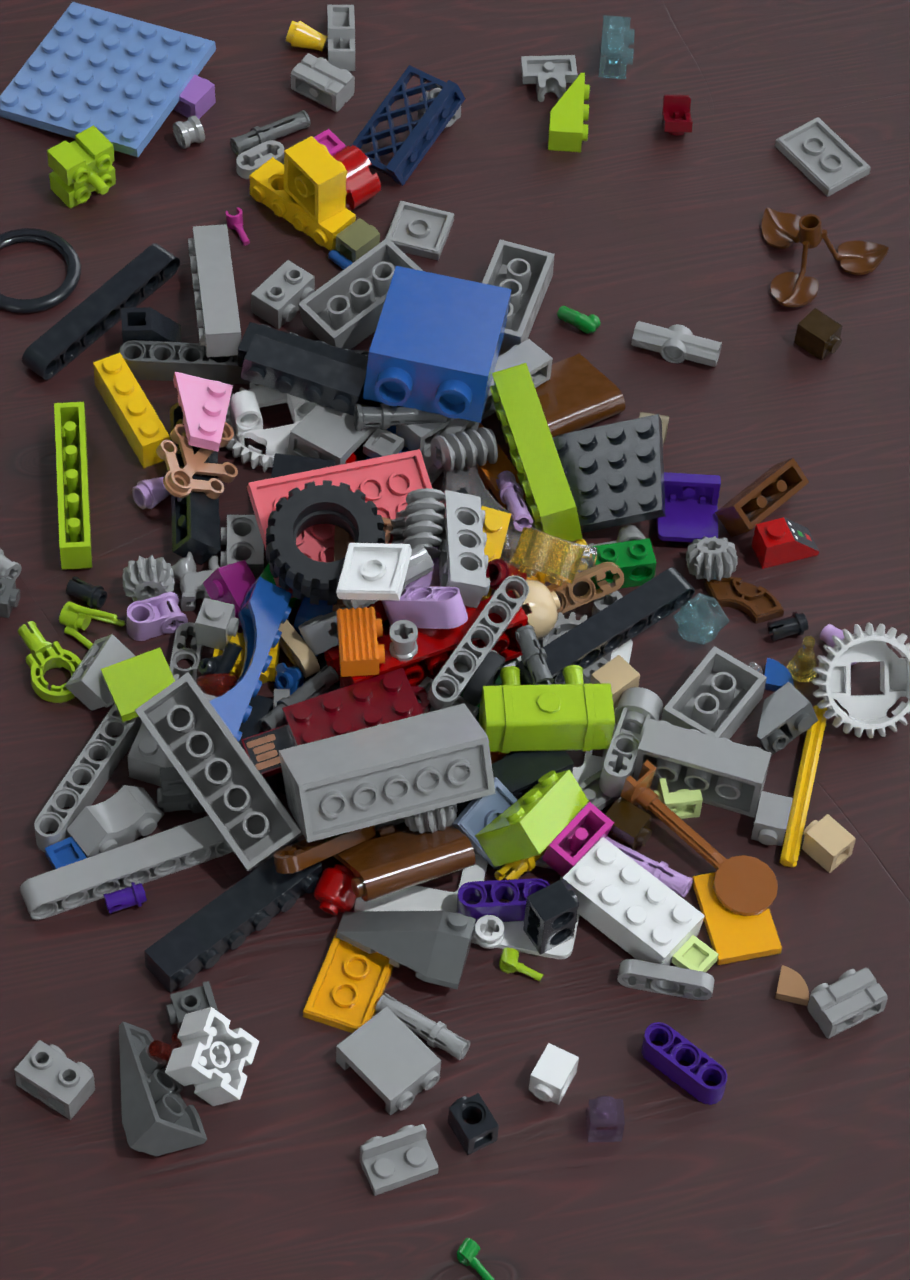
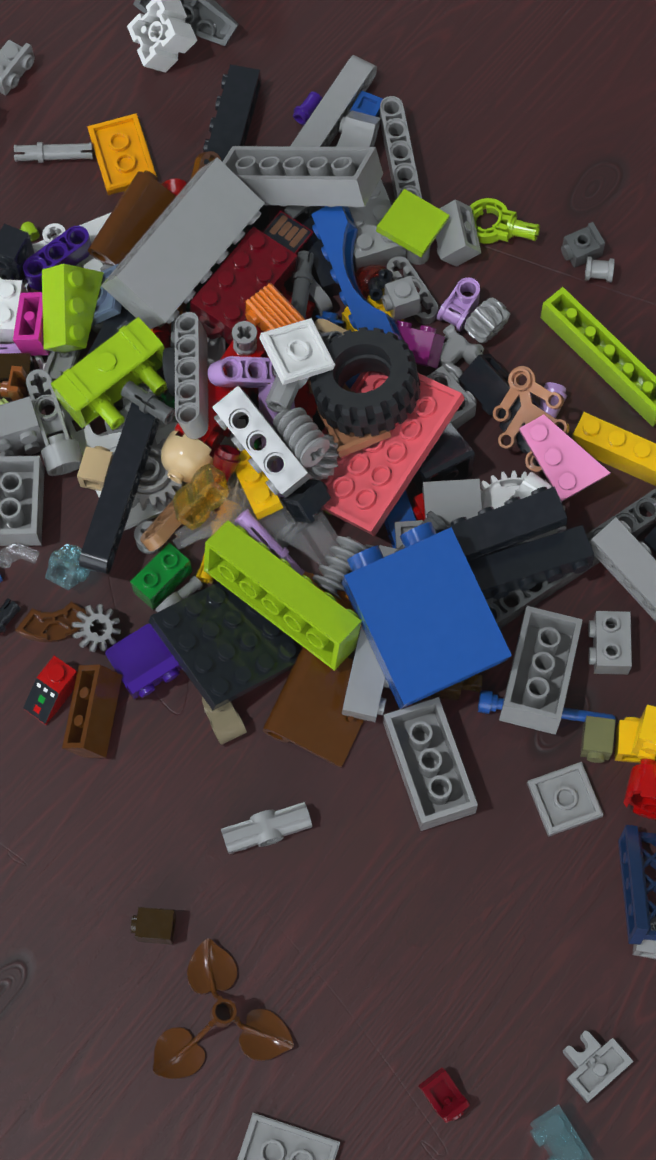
camera: 150 degrees right, 15 degrees up
(79, 617) = (511, 268): lime plant -> none
(92, 595) = (524, 292): black pin -> none
(163, 1050) = (200, 31): clear red arm -> none
(189, 1001) = (204, 68): dark grey brick -> none
(390, 1060) = (57, 111): light grey panel -> none
(424, 941) = (89, 193): dark grey wedge -> none
(567, 118) = (535, 1014): lime slope -> none
(585, 323) = (363, 794): green arm -> none

